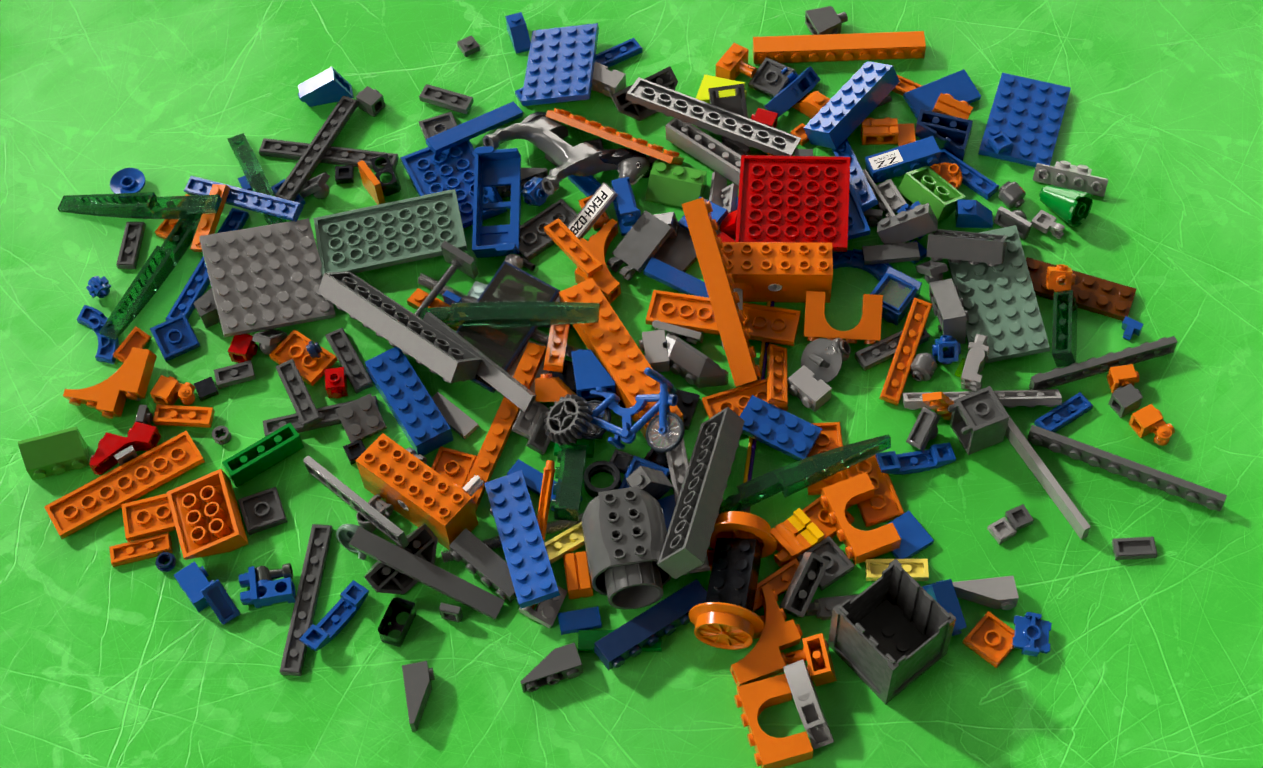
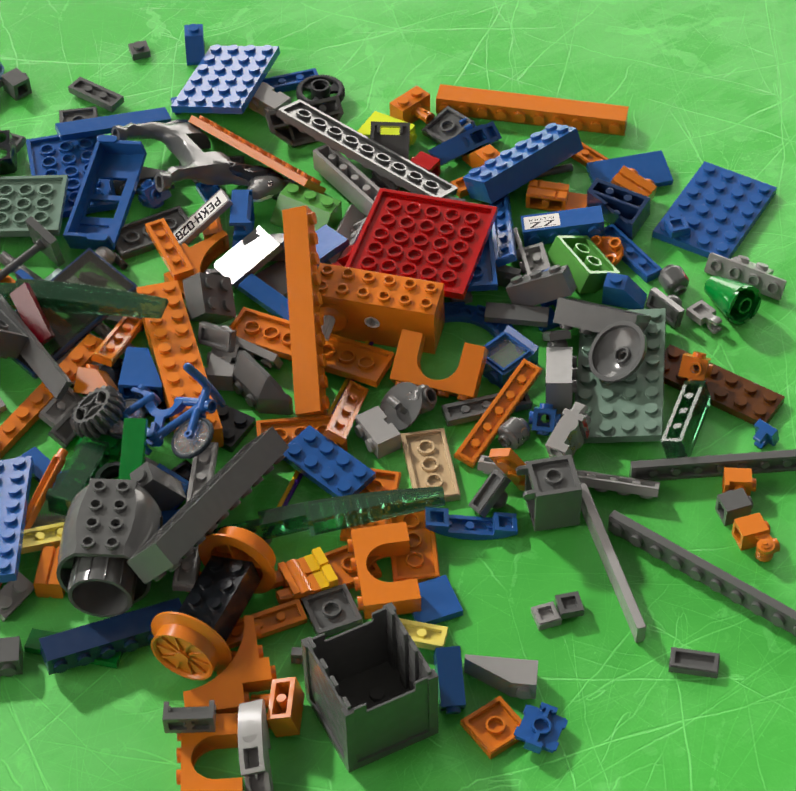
camera: 10 degrees right, 10 degrees down
(476, 334) = (32, 313): none -> tile
(579, 620) = (38, 618): blue tile -> none
(615, 455) = (132, 446): none -> green tile
(626, 290) = (209, 298): none -> dark grey brick
(646, 56) = (320, 88): none -> black wheel
(646, 326) = (217, 336): none -> dark grey tile
(747, 688) = (189, 718): none -> dark grey hinge
(804, 584) = (295, 624): dark grey brick -> none
(824, 20) = (526, 81): dark grey torso -> none
(861, 409) = (430, 461): none -> tan tile
(984, 273) = (617, 351): none -> dark grey dish
(1064, 413) = (660, 508): blue tile -> none

